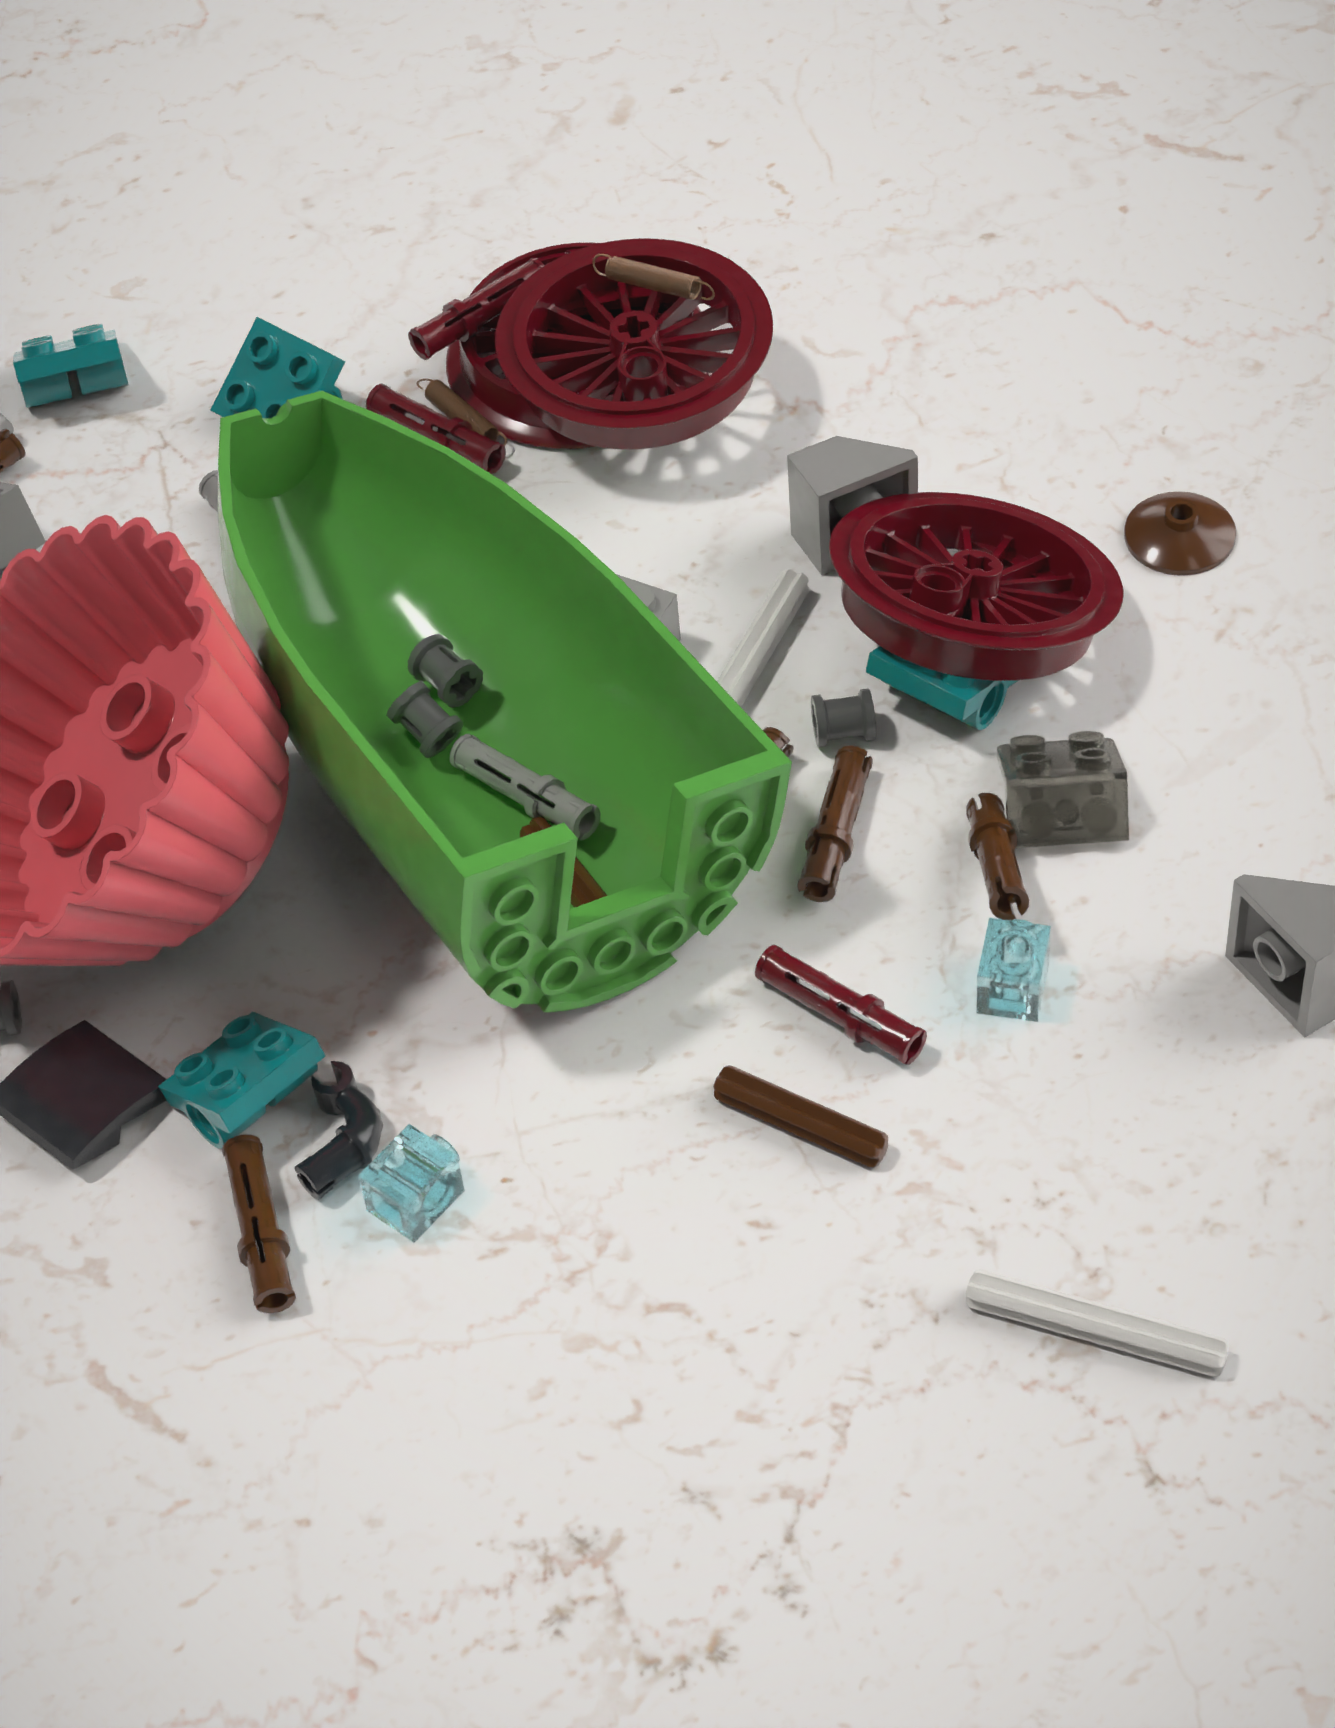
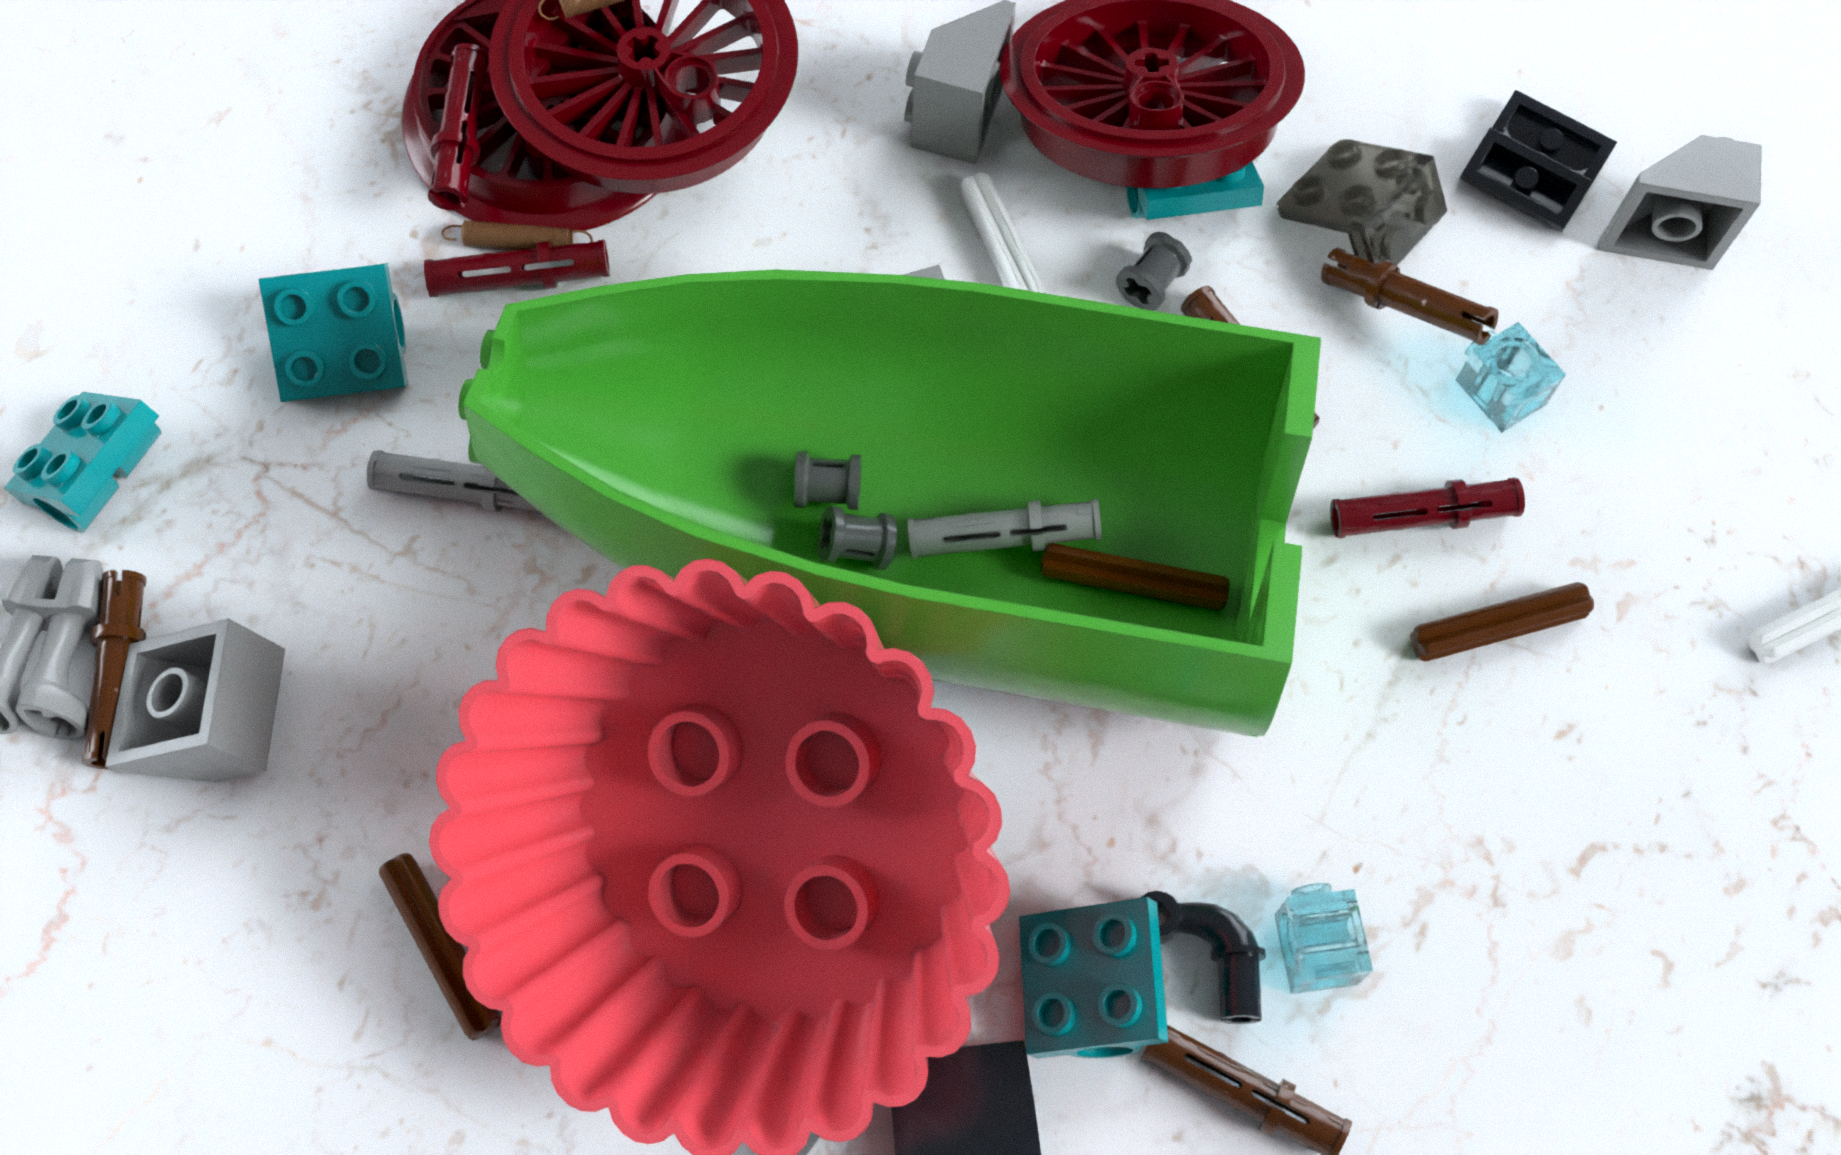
camera: 55 degrees left, 15 degrees up
(1252, 841) = (1538, 160): none -> black slope

